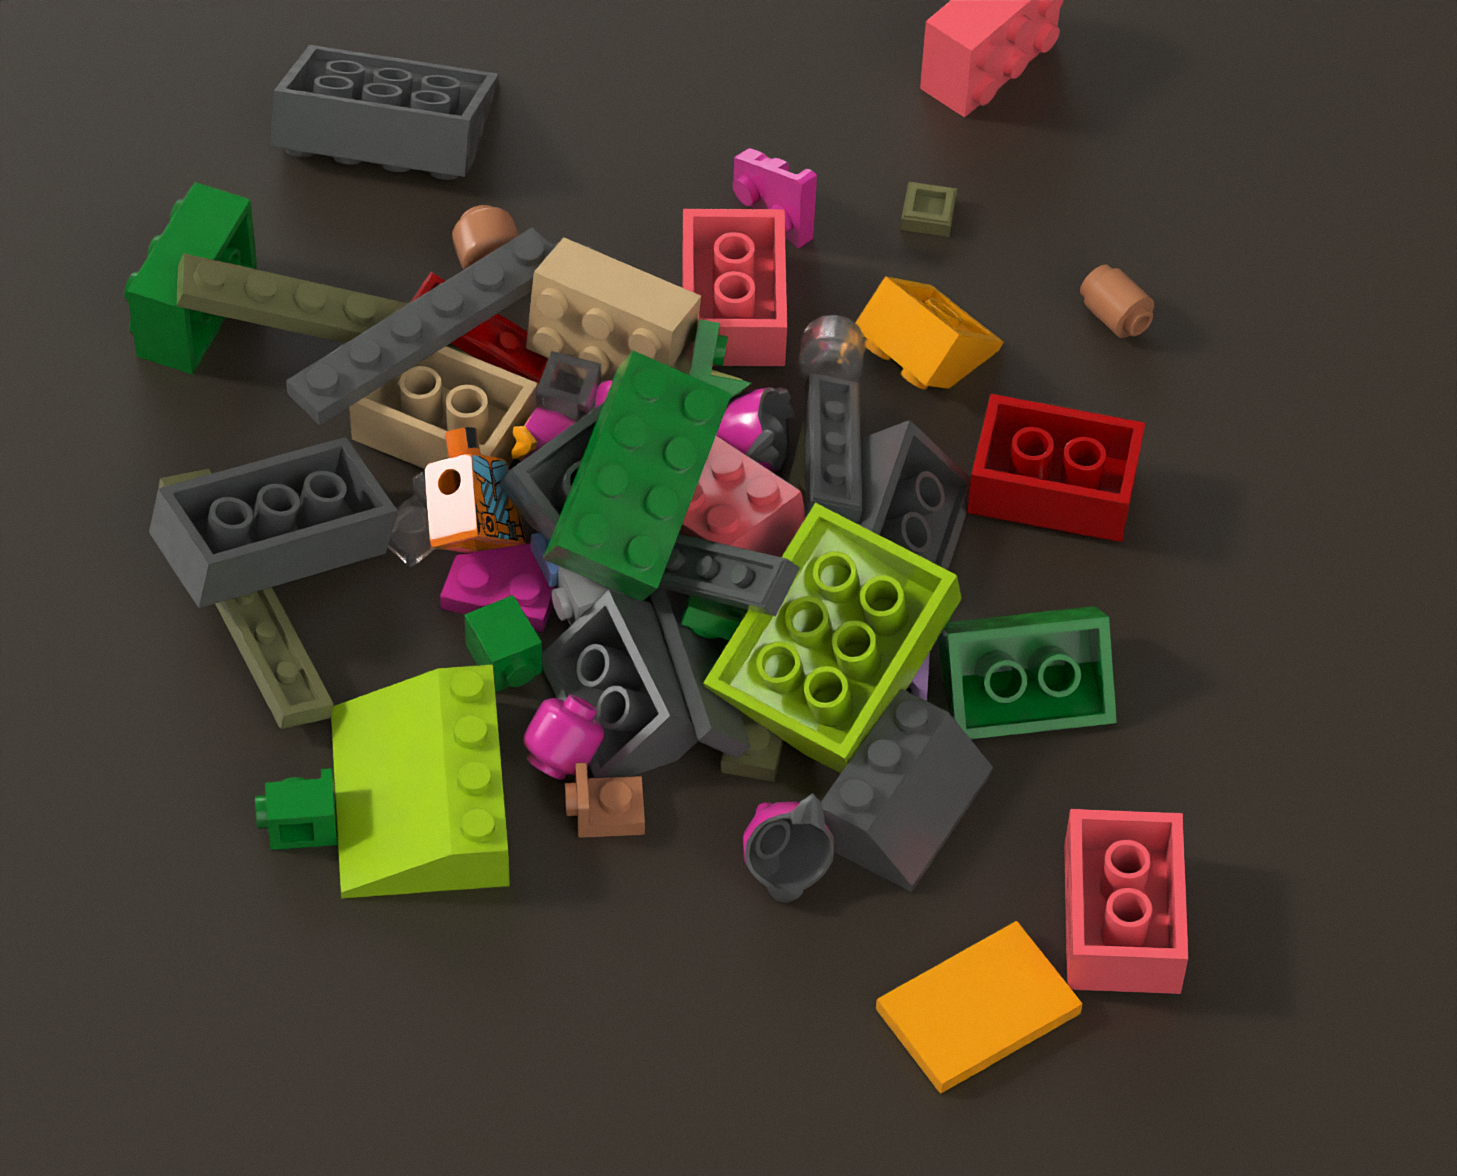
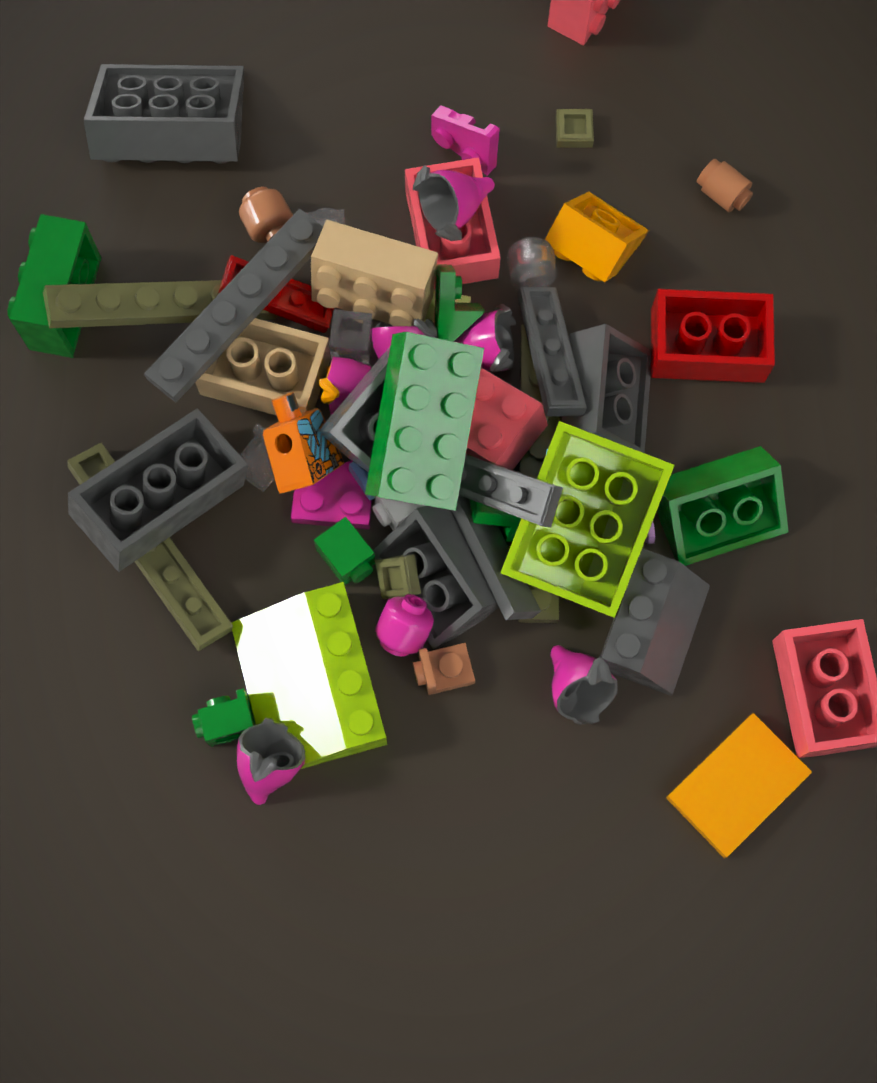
camera: 10 degrees left, 20 degrees up
(342, 857) = (268, 758): none -> dark grey hat
(567, 675) = (397, 576): none -> olive tile
(733, 242) = (450, 199): none -> hat

